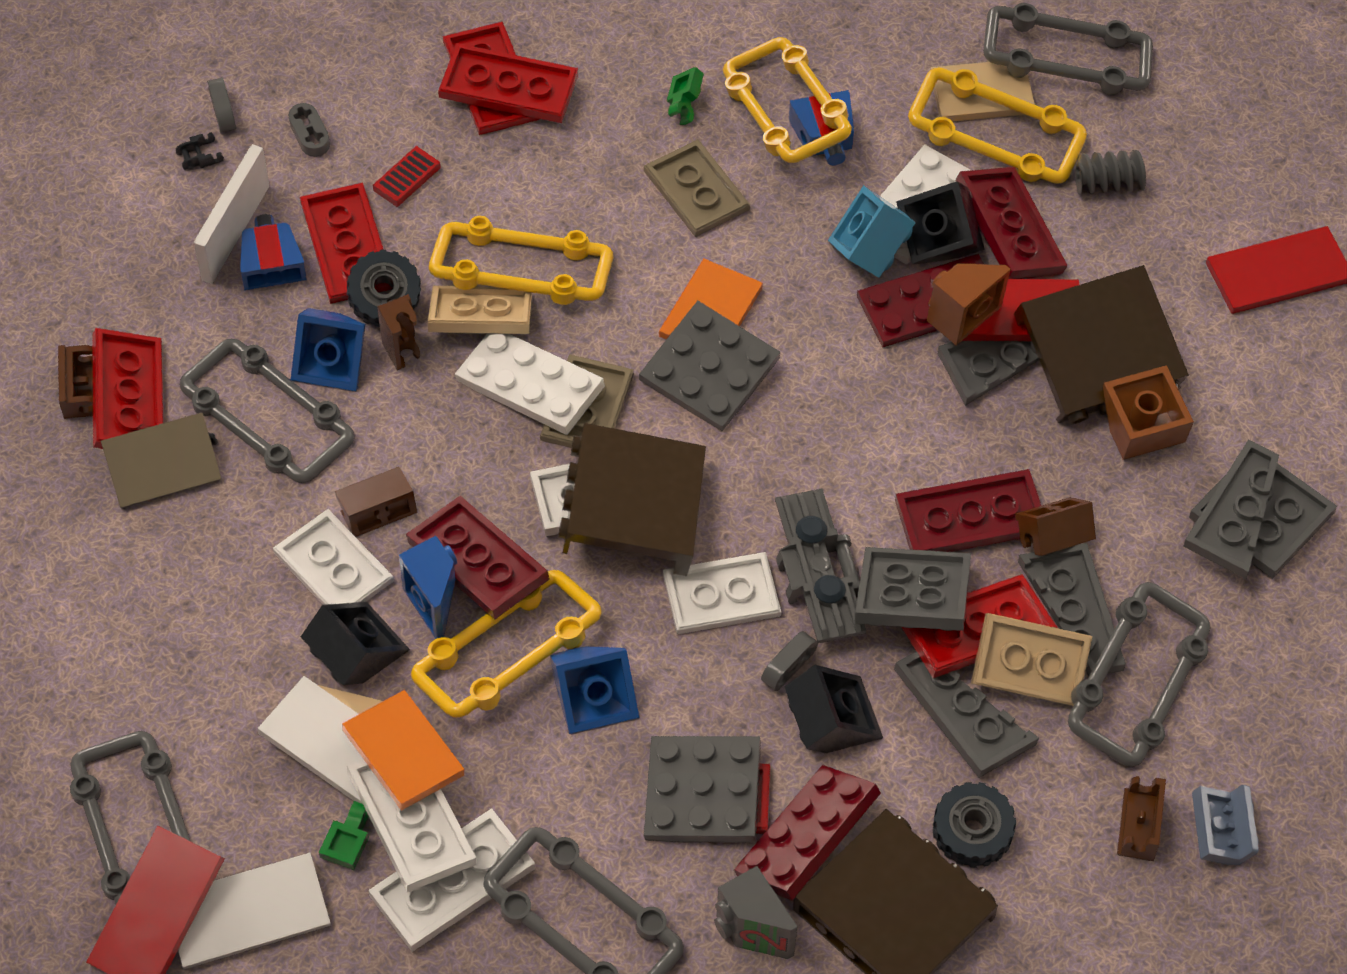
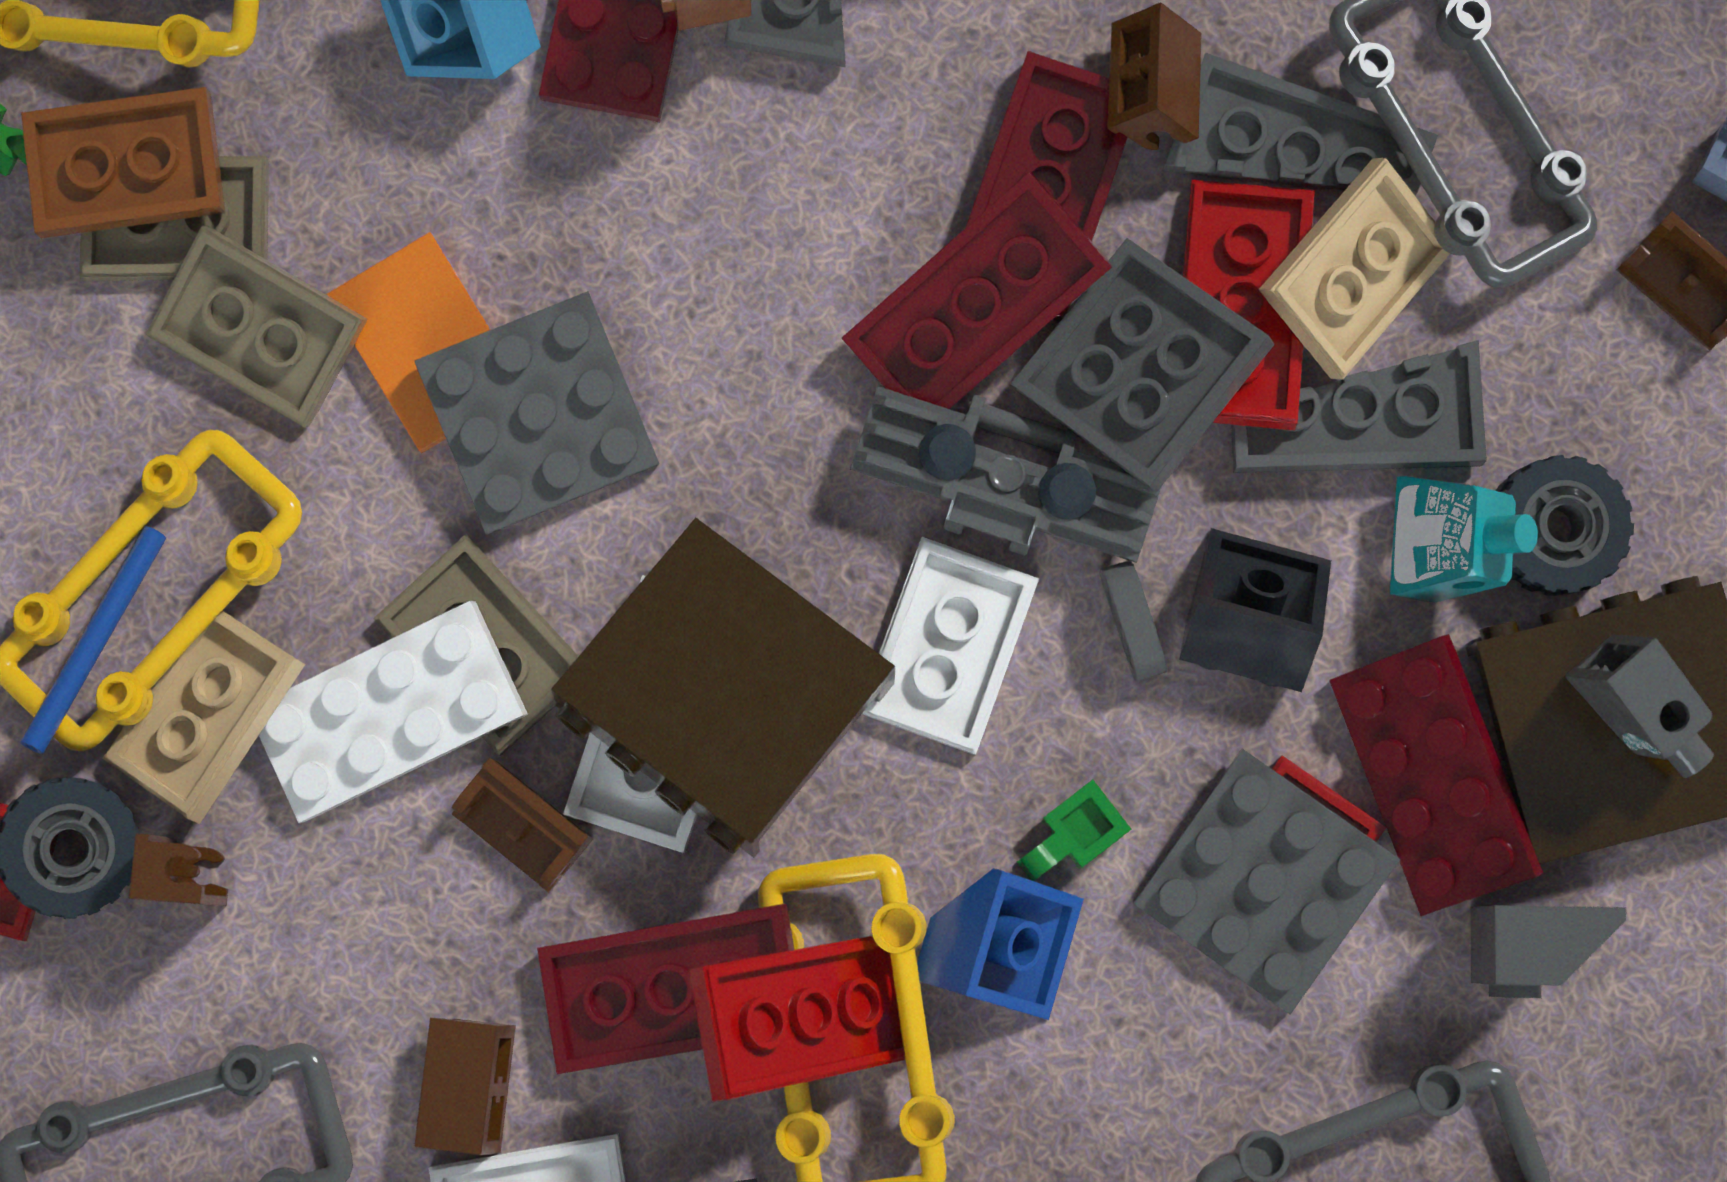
camera: 55 degrees left, 25 degrees up
(328, 349) = (124, 1001): blue slope -> none
(429, 582) = (675, 1098): blue slope -> none
(484, 251) = (93, 640): none -> blue piece
(498, 599) = (796, 1016): none -> red tile
(514, 460) = (520, 824): none -> reddish brown hinge
(669, 239) = (256, 326): none -> dark tan tile
(671, 693) = (1079, 828): none -> green plate
(706, 150) = (122, 162): none -> dark orange plate
(895, 505) = (979, 297): none -> dark red plate
(911, 875) = (1645, 700): none -> dark grey torso
(933, 770) = (1454, 539): none -> torso

